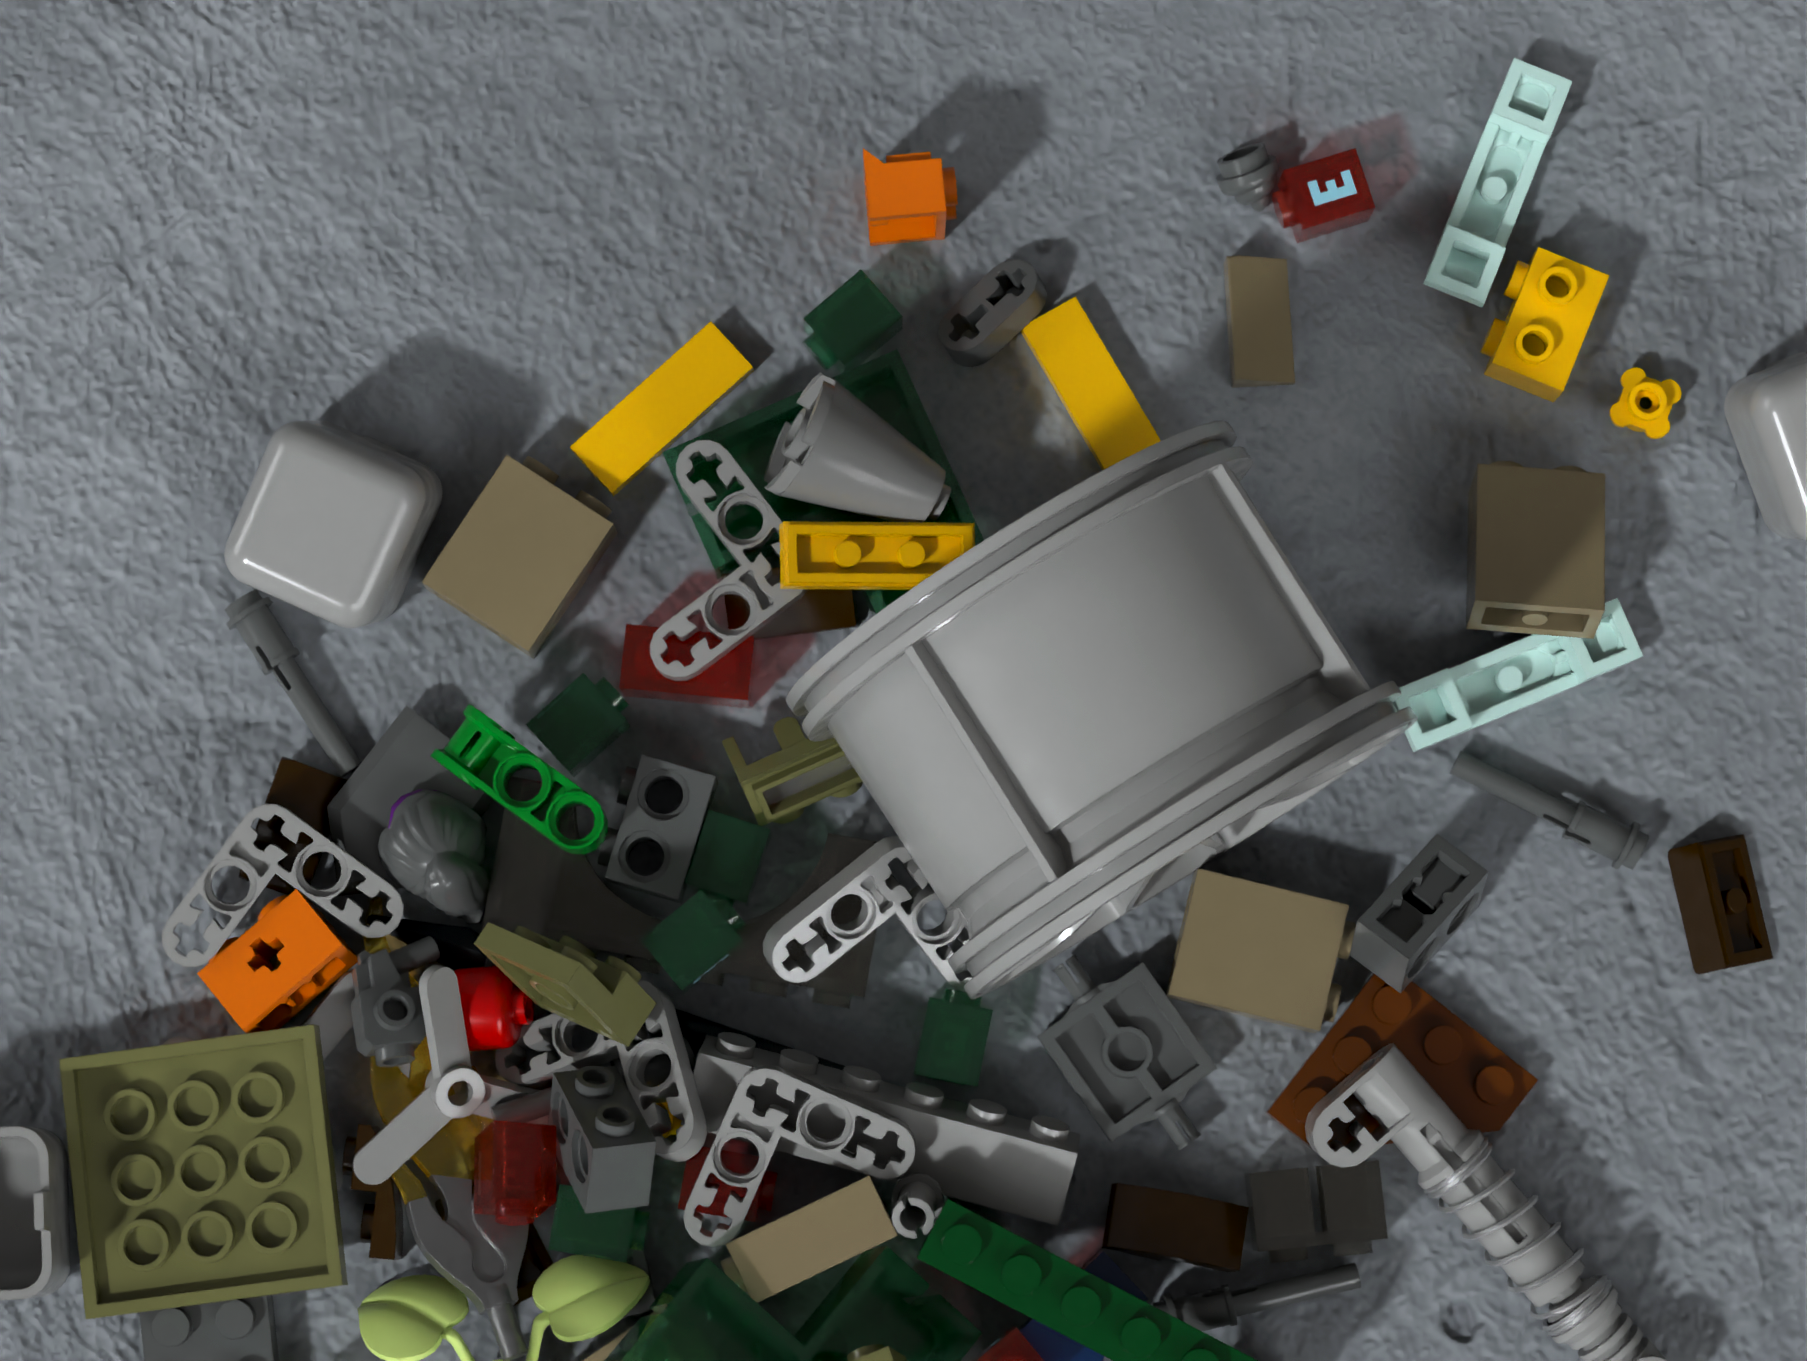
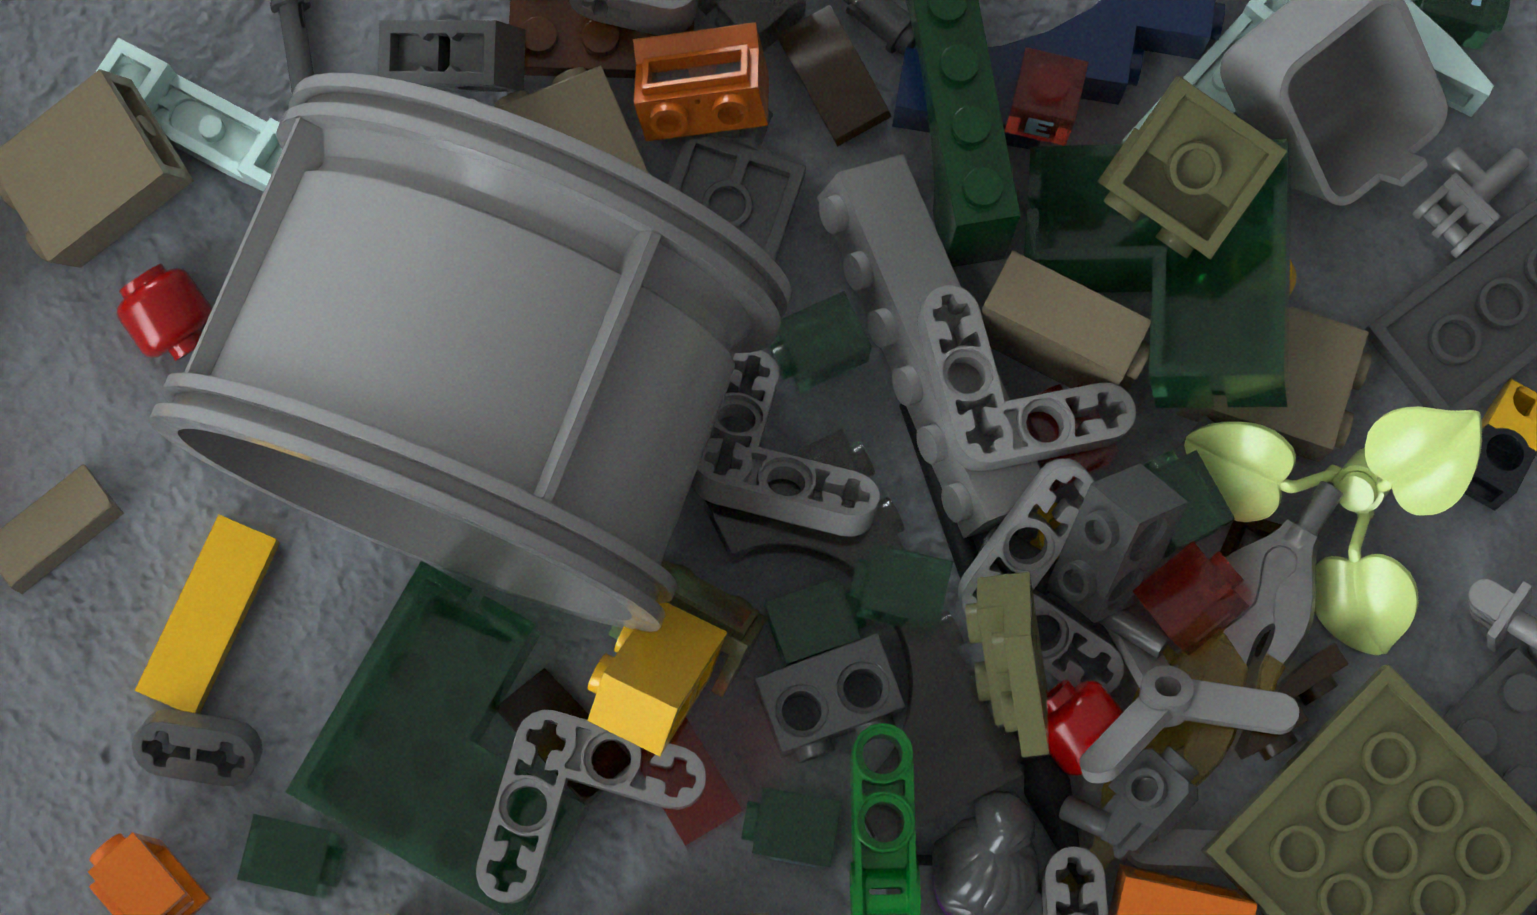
camera: 130 degrees left, 5 degrees down
(755, 671) = (654, 678): none -> yellow brick
(853, 460) = (409, 754): light grey cone -> none
(867, 553) = (476, 671): yellow tile -> none
(923, 1206) = (973, 264): light grey pin -> none
(1243, 1104) = (701, 82): none -> orange window
(1371, 530) = (163, 312): none -> red head

